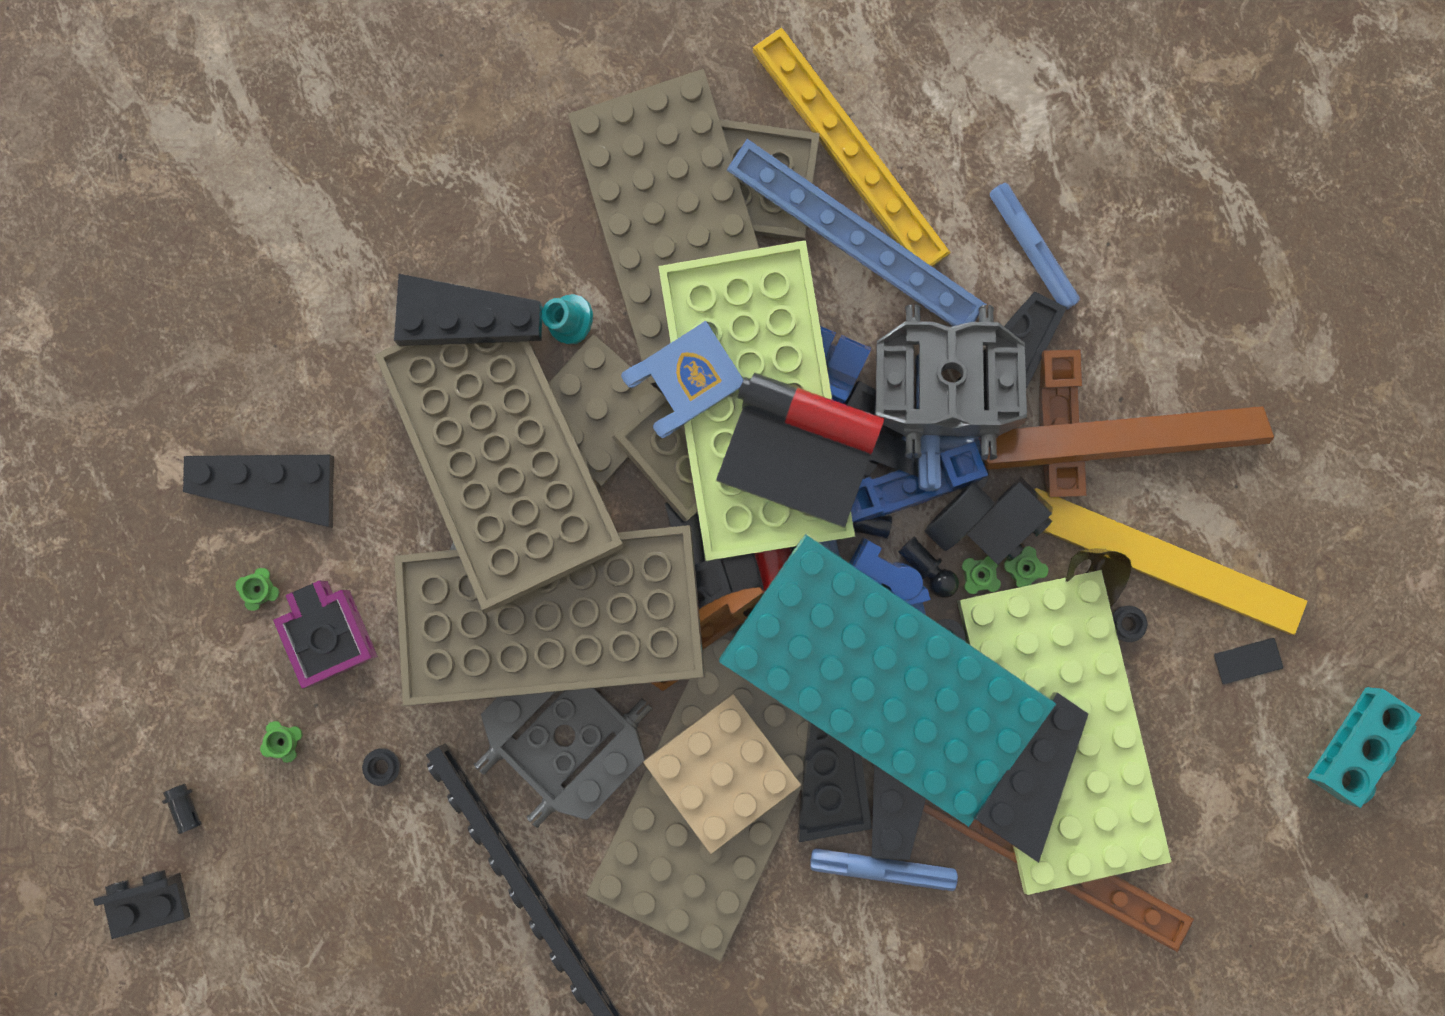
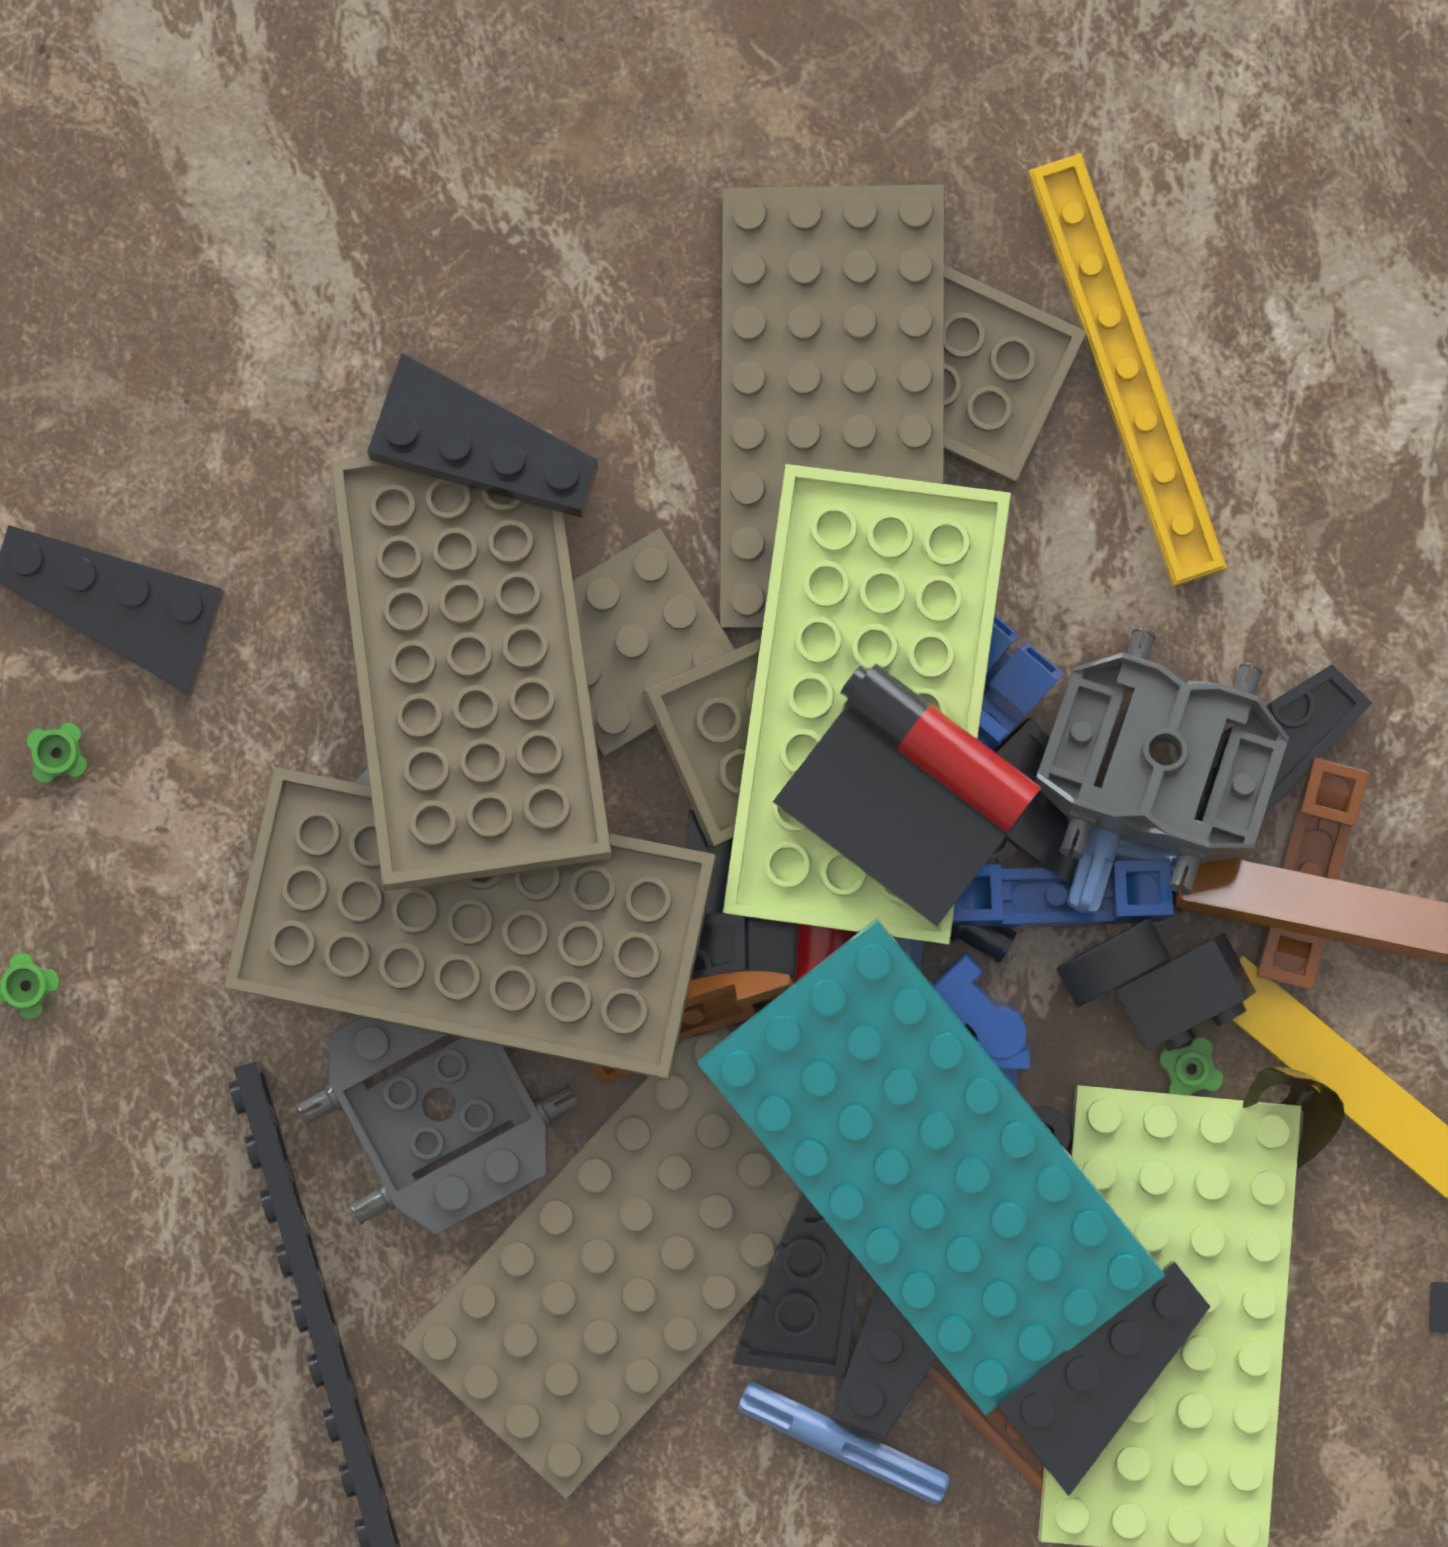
camera: 20 degrees right, 0 degrees up
(323, 633) = (136, 848): piece -> none
(370, 767) = (142, 1067): black plate -> none
(568, 318) = (631, 494): teal piece -> none
(690, 373) = (784, 638): medium blue flag -> none
(721, 773) = (651, 1228): tan plate -> none
(854, 235) = (1090, 503): medium blue tile -> none
(942, 582) = (1062, 1052): black pin -> none
(973, 582) = (1107, 1066): bright green plate -> none
(1034, 246) = (1355, 596): medium blue axle -> none
(1139, 623) = (1334, 1200): black plate -> none

